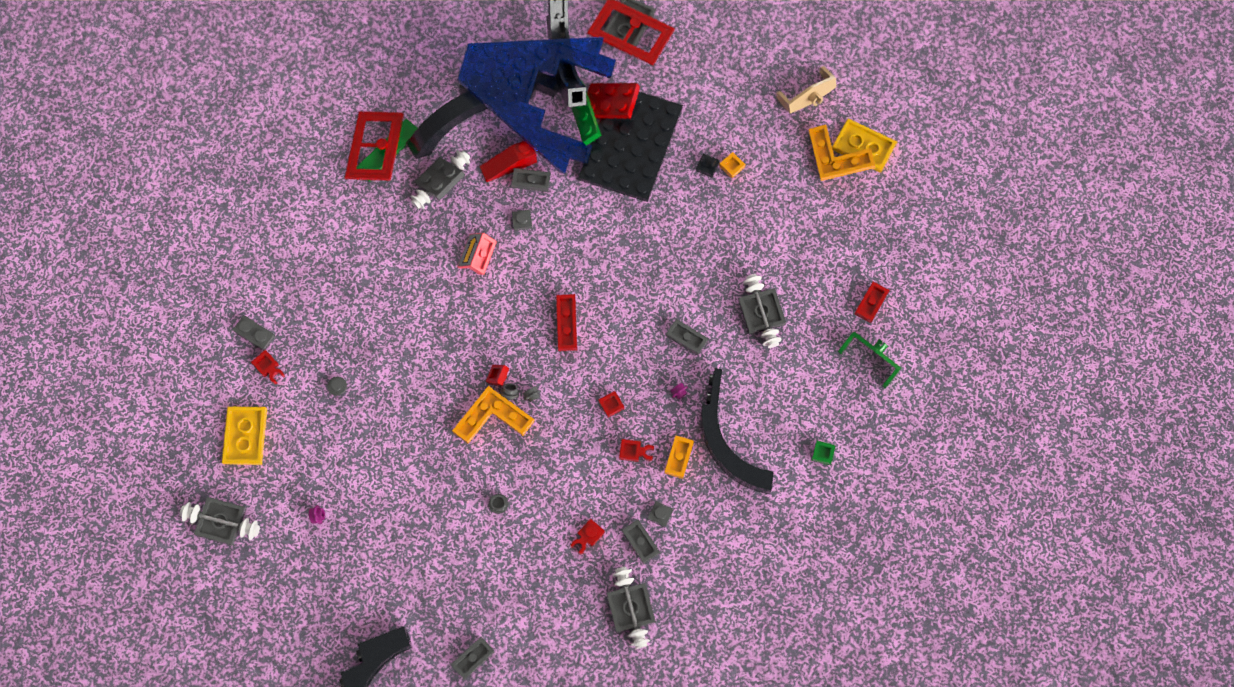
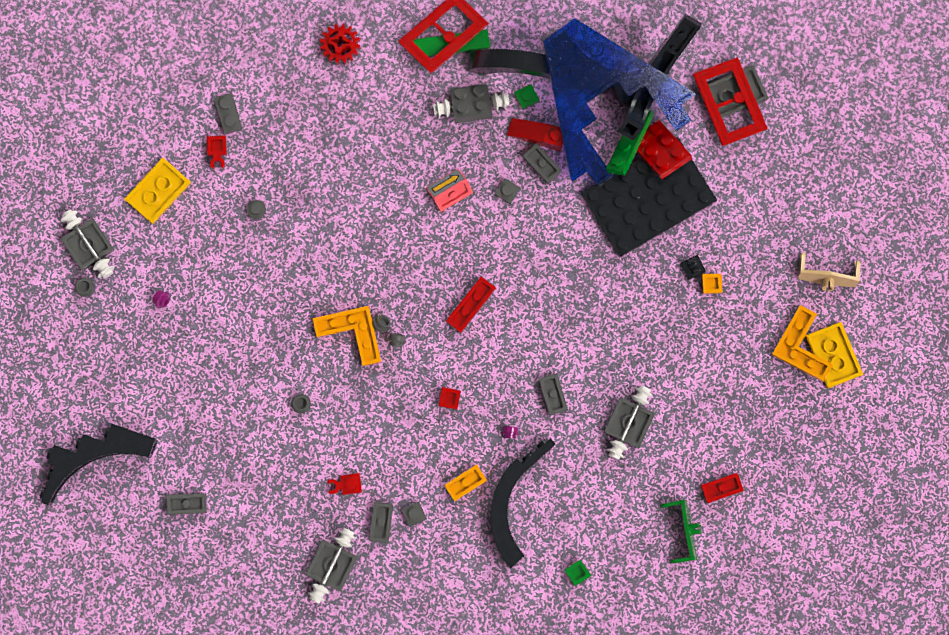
camera: 35 degrees right, 10 degrees up
(245, 557) = (84, 287): none -> dark grey plate
(296, 206) = (347, 45): none -> red gear
(477, 143) = (526, 96): none -> green plate
(497, 375) = (383, 302): red plate -> none
(632, 450) = (434, 448): red plate -> none

